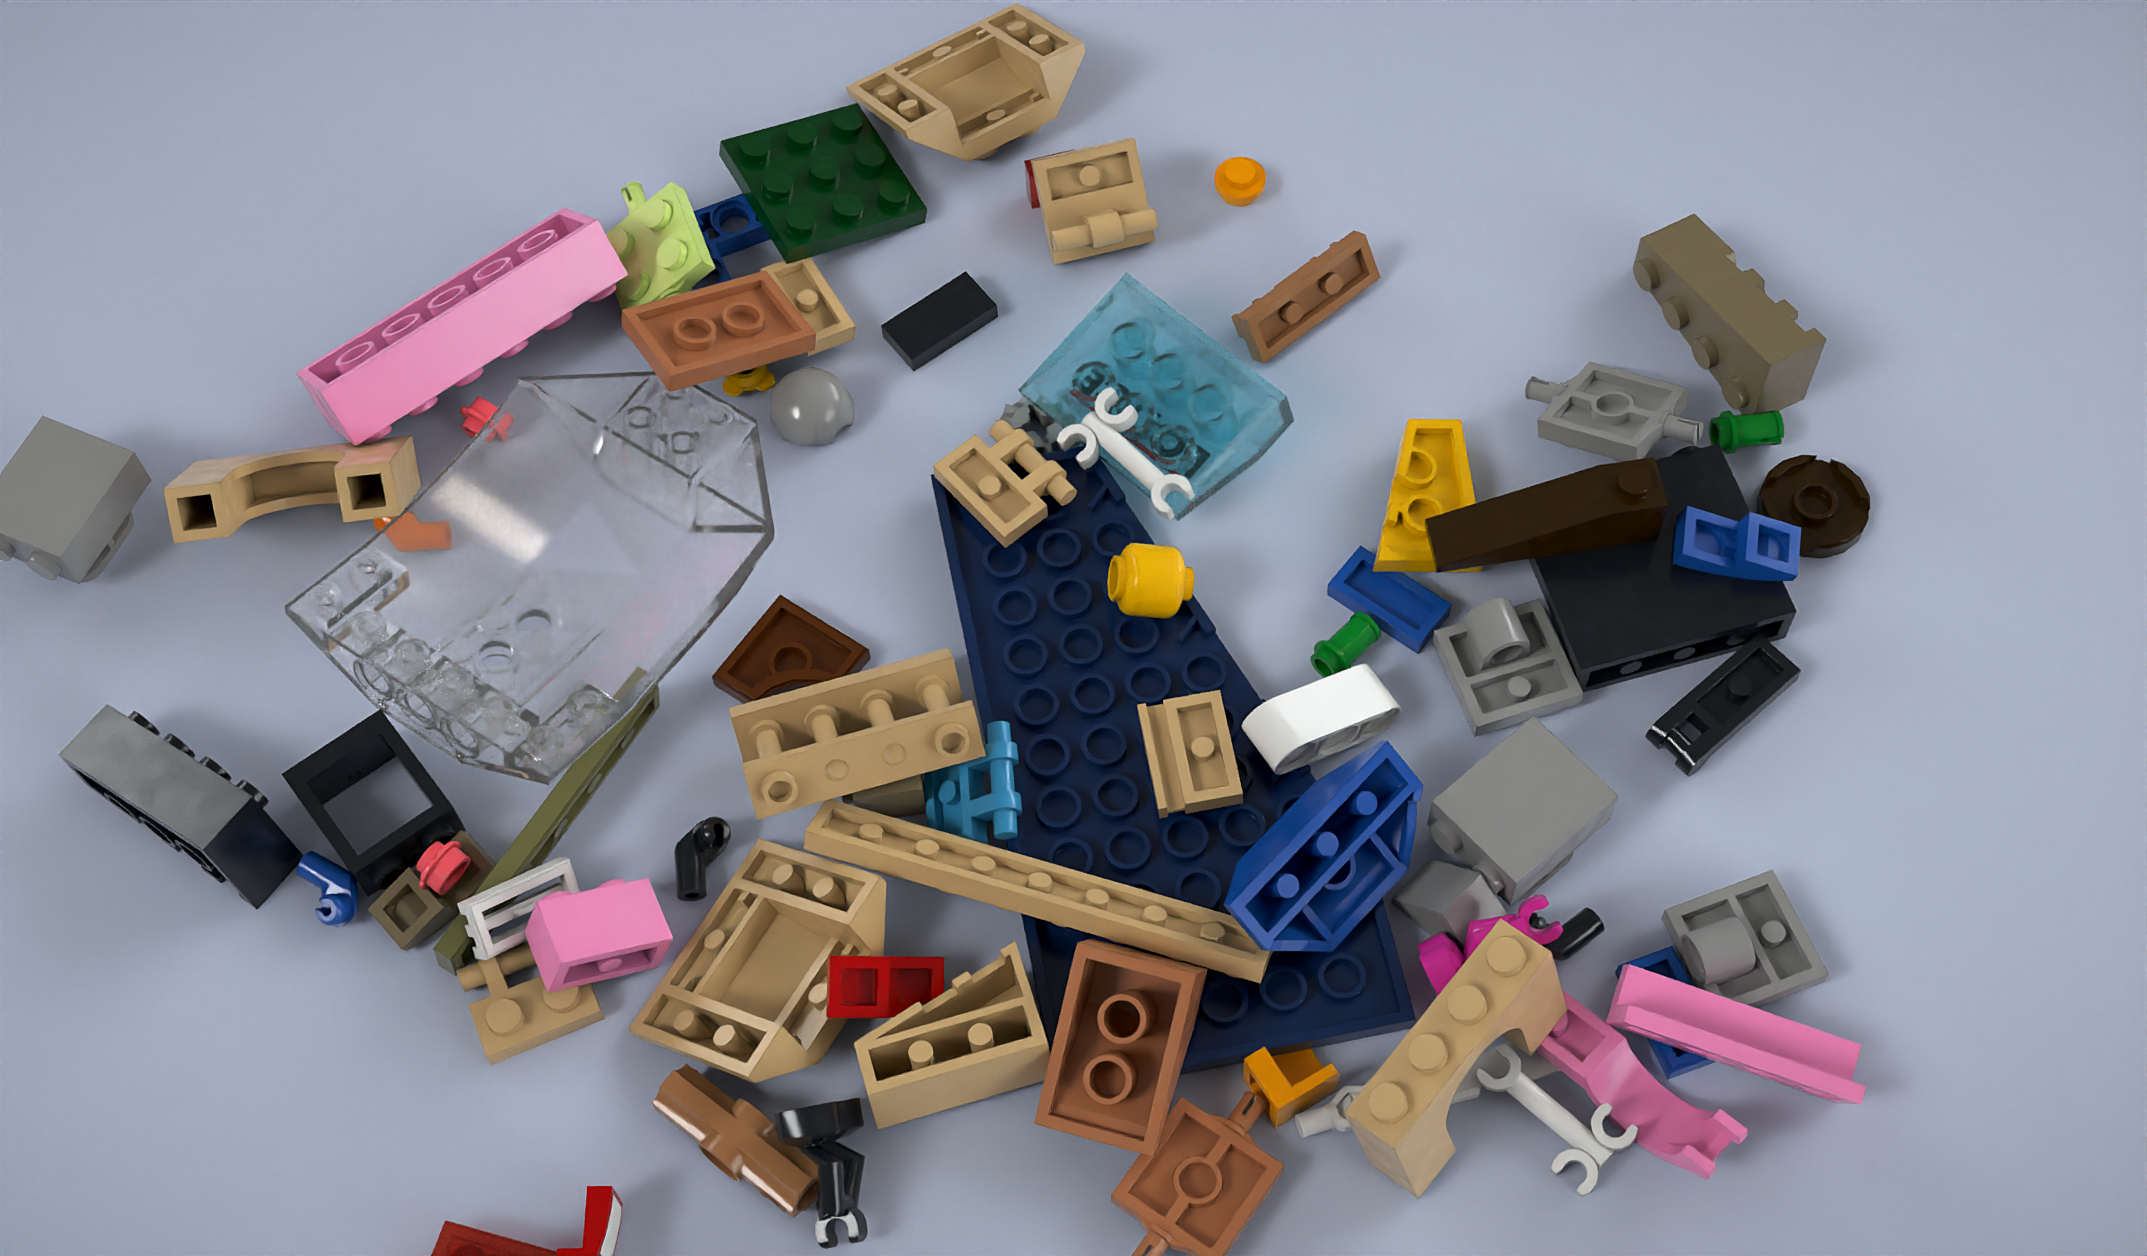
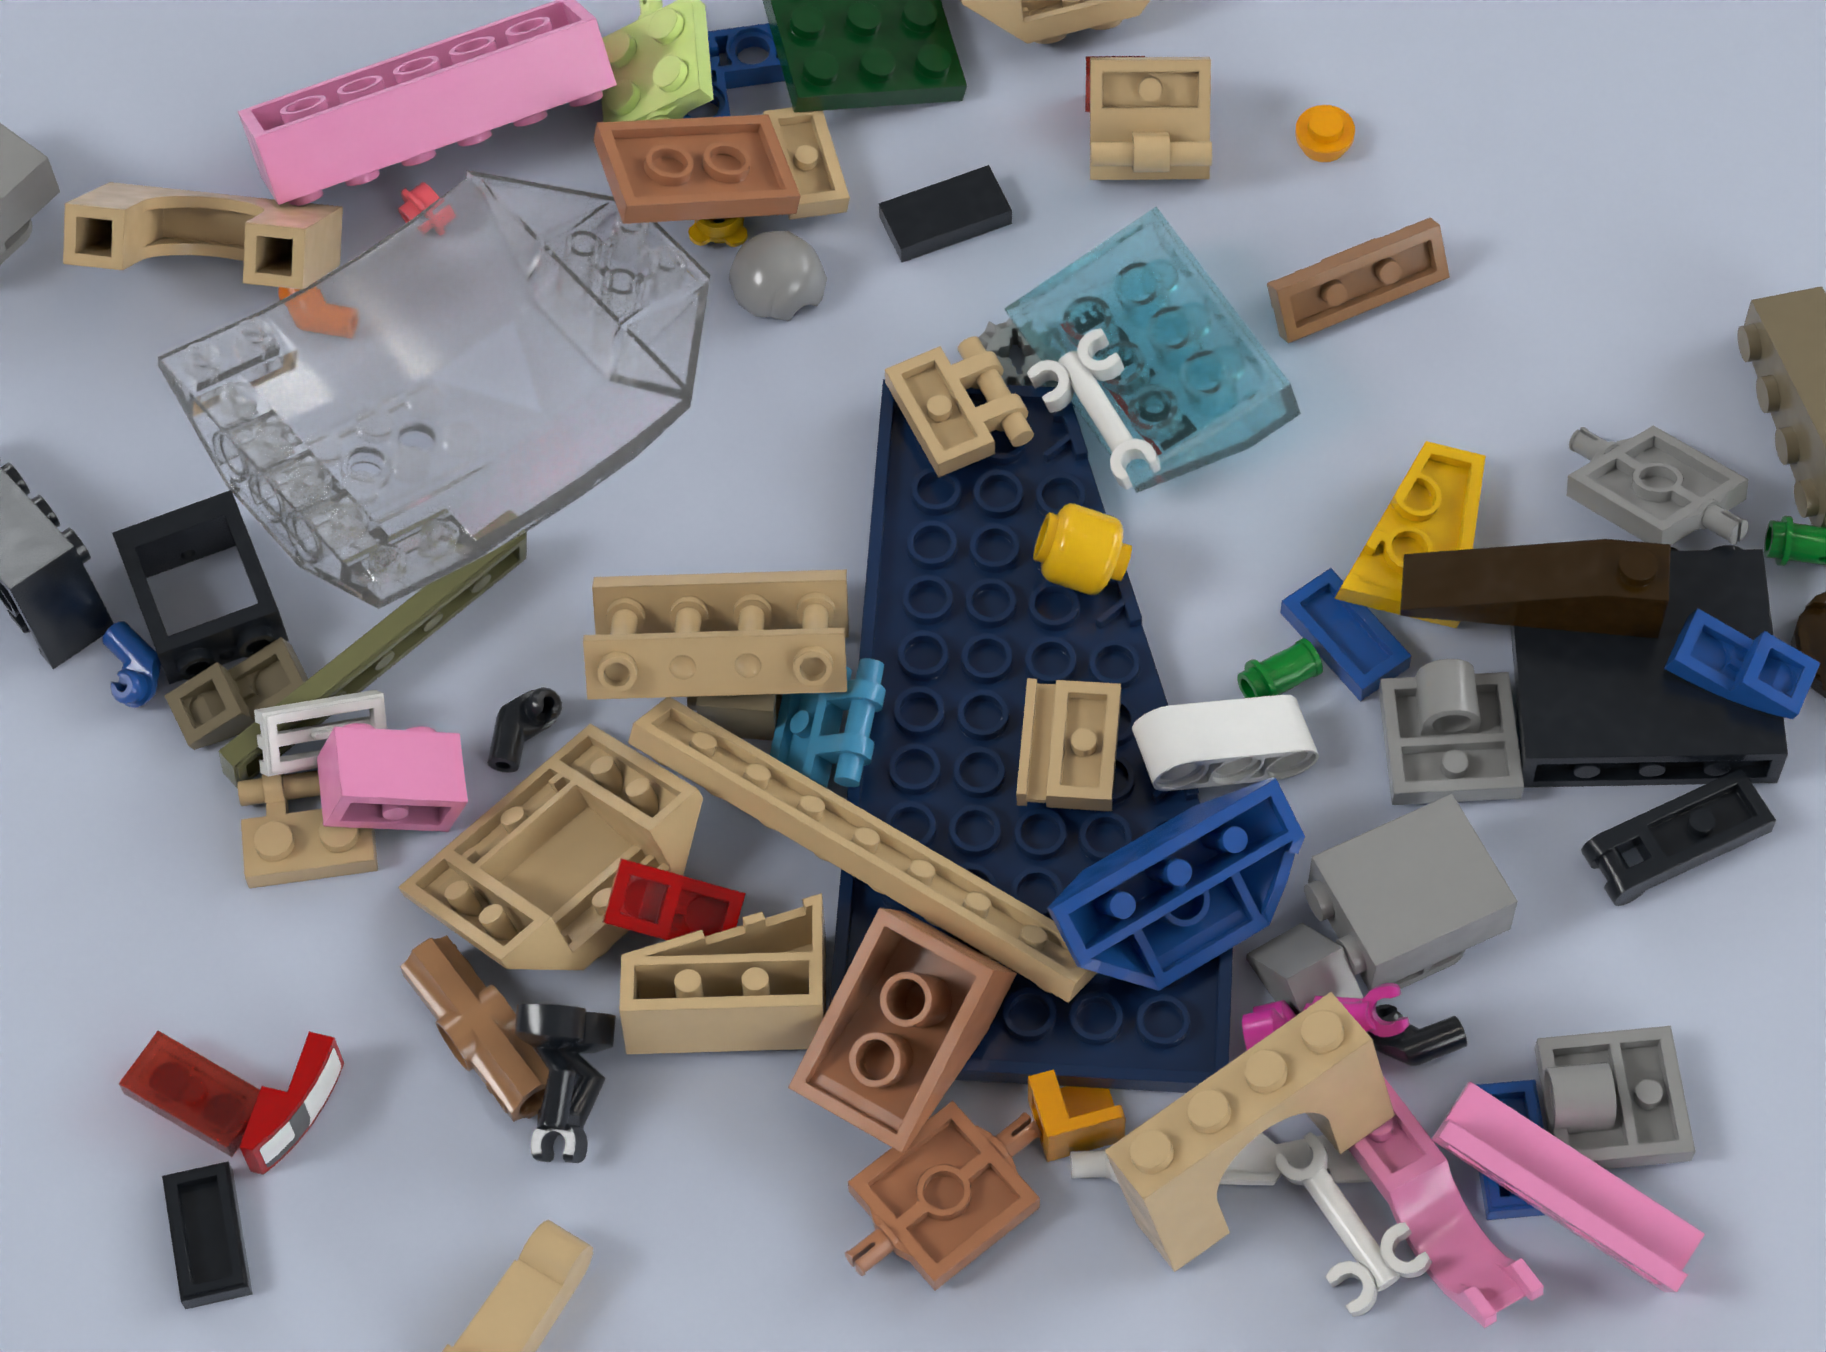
camera: 15 degrees right, 0 degrees up
(442, 866) = (251, 669): coral plate -> none
(787, 653) = (676, 534): reddish brown tile -> none

